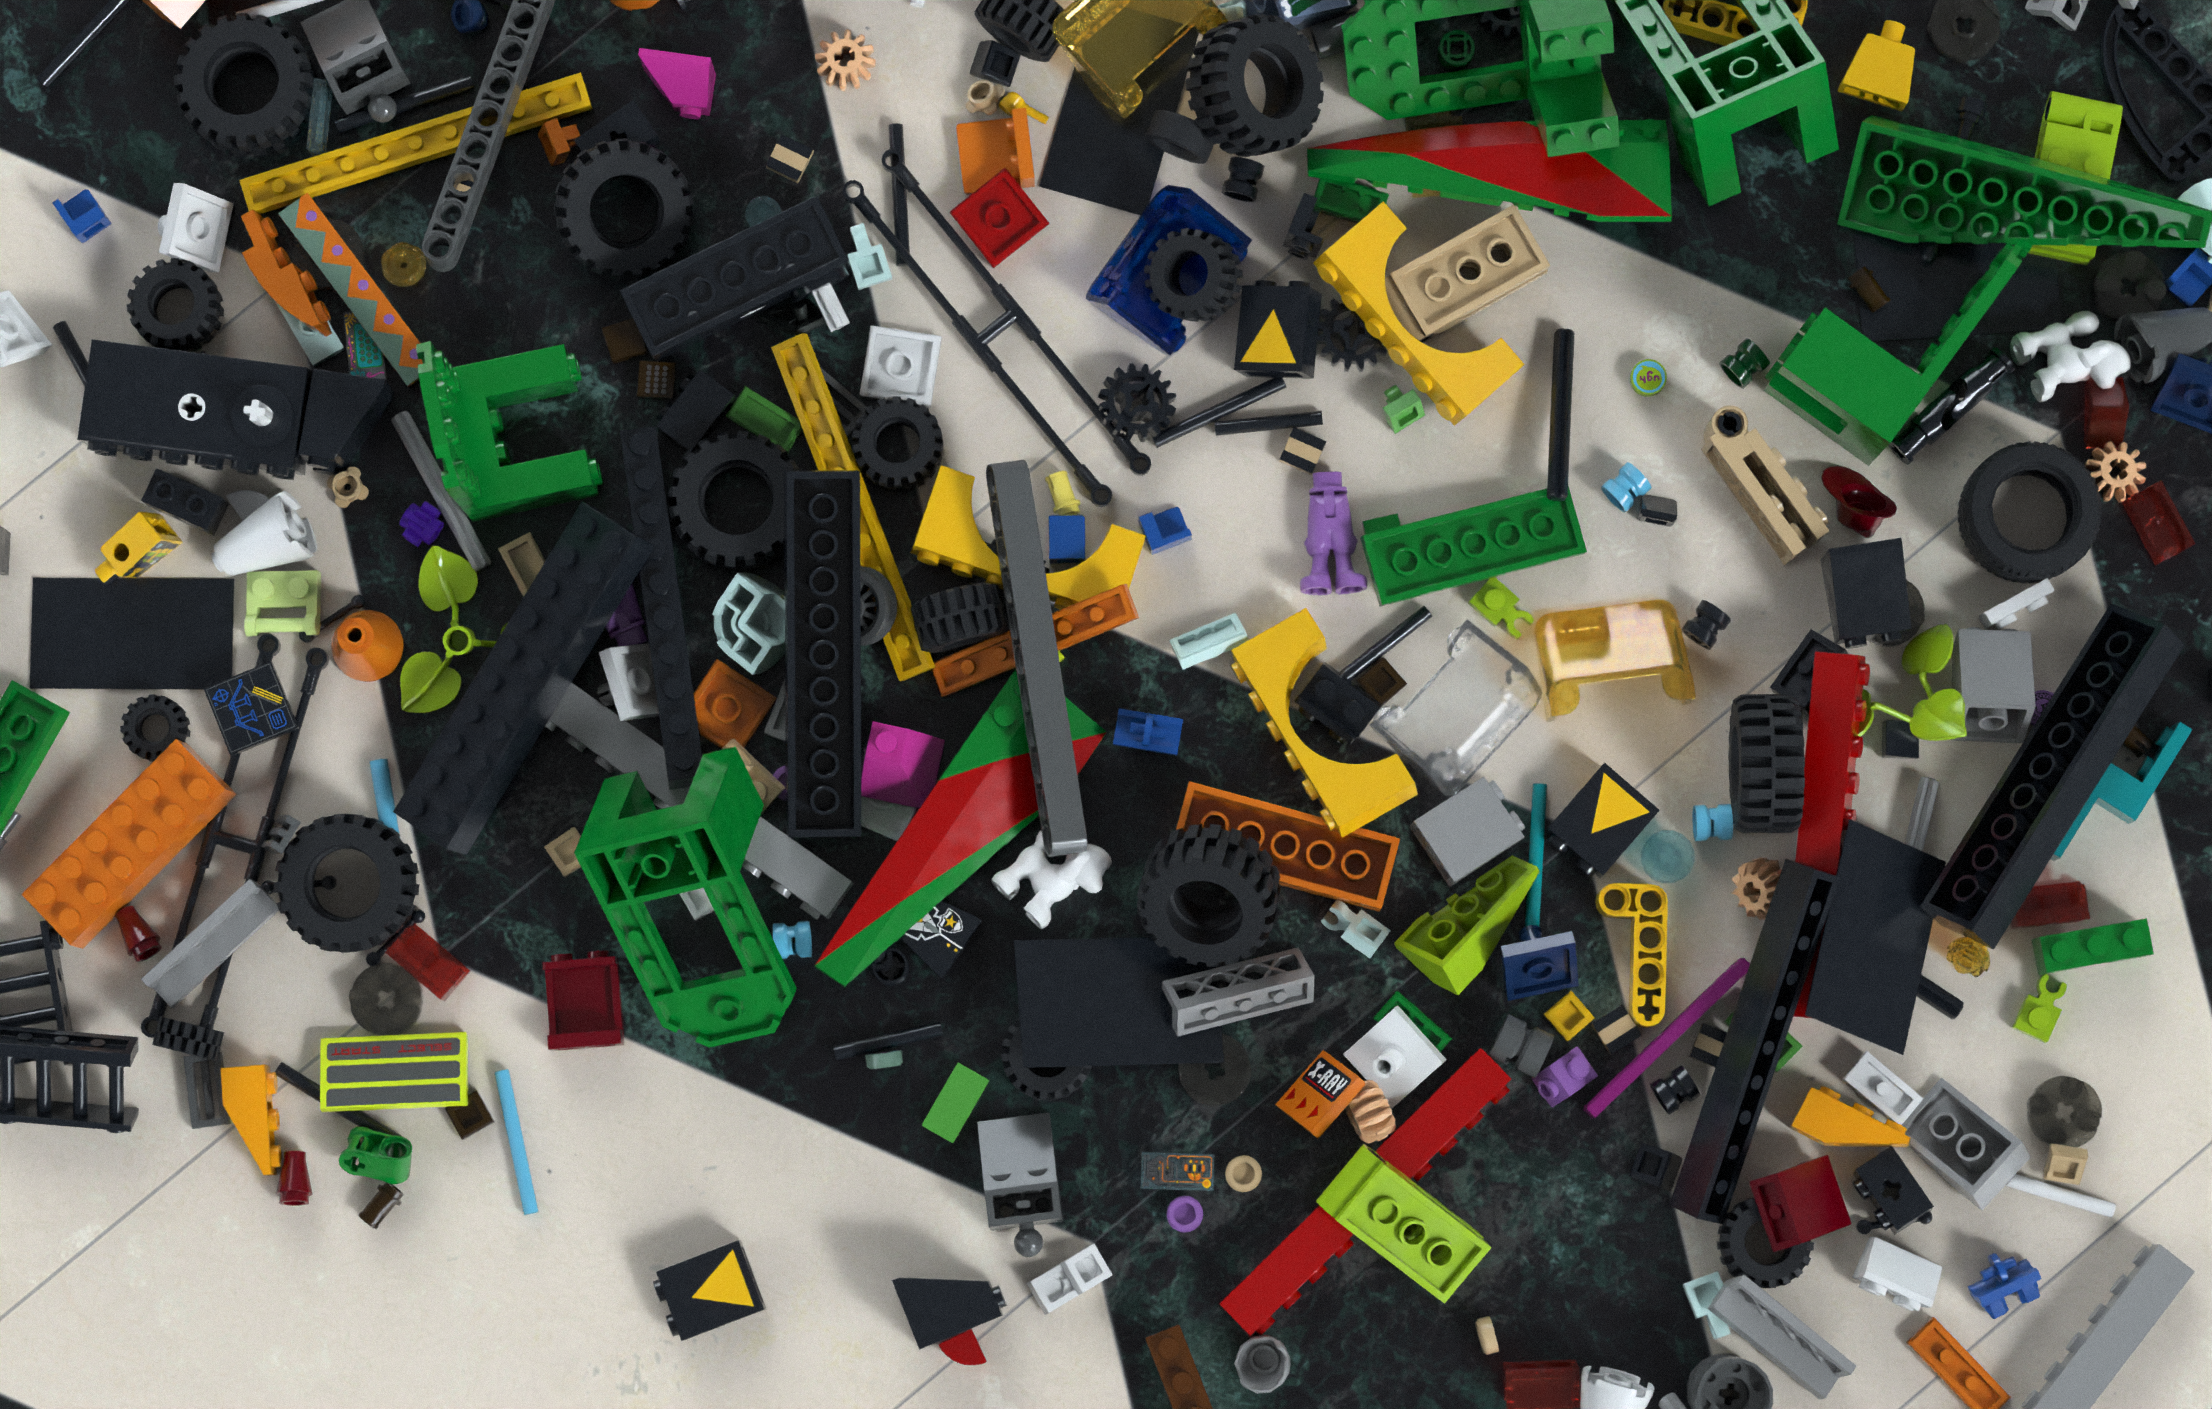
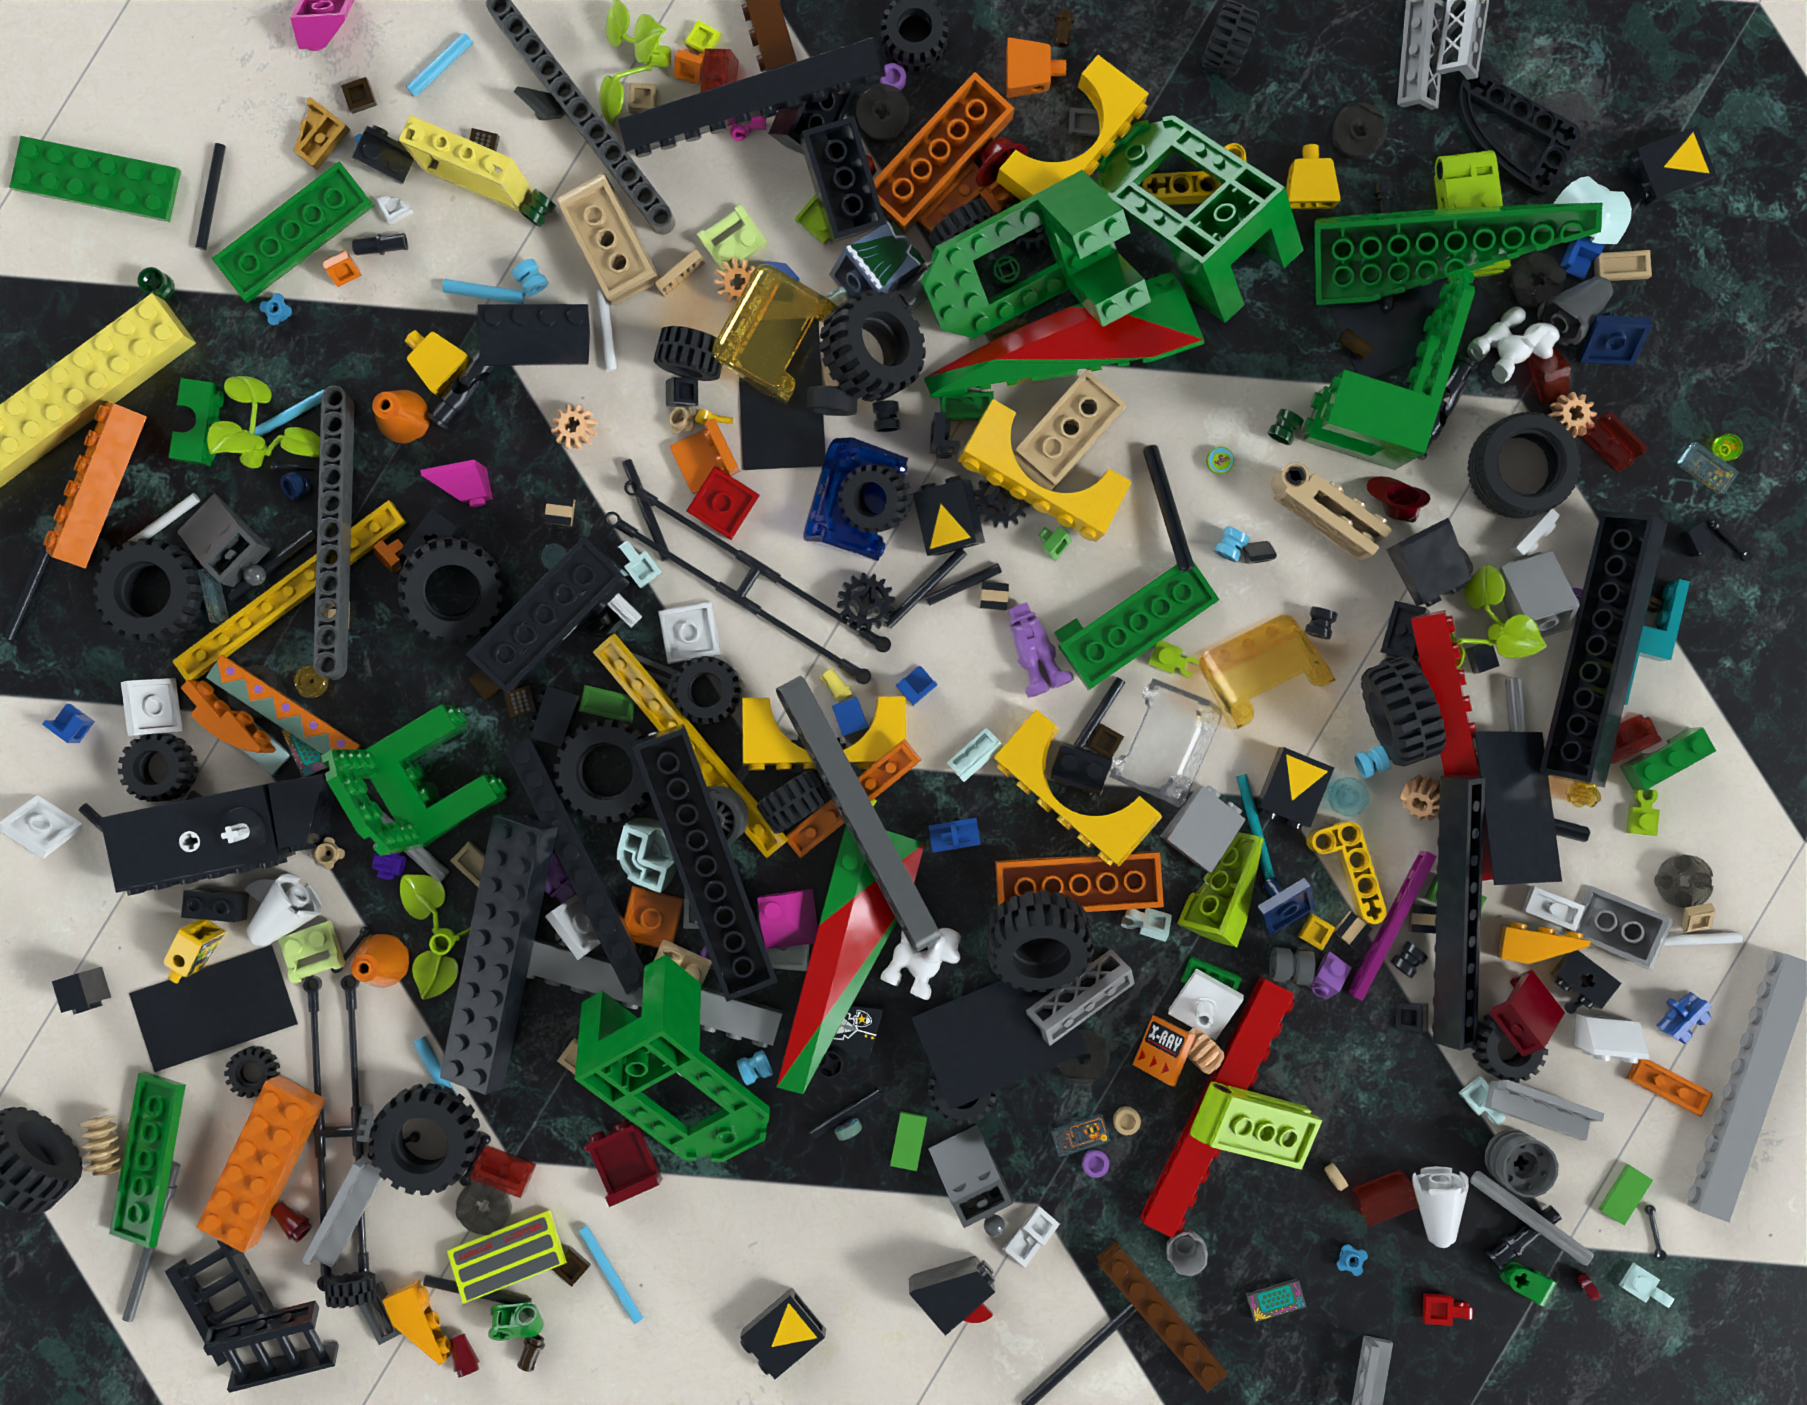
camera: 20 degrees left, 5 degrees up
(251, 708) = (314, 1036): black tile -> none

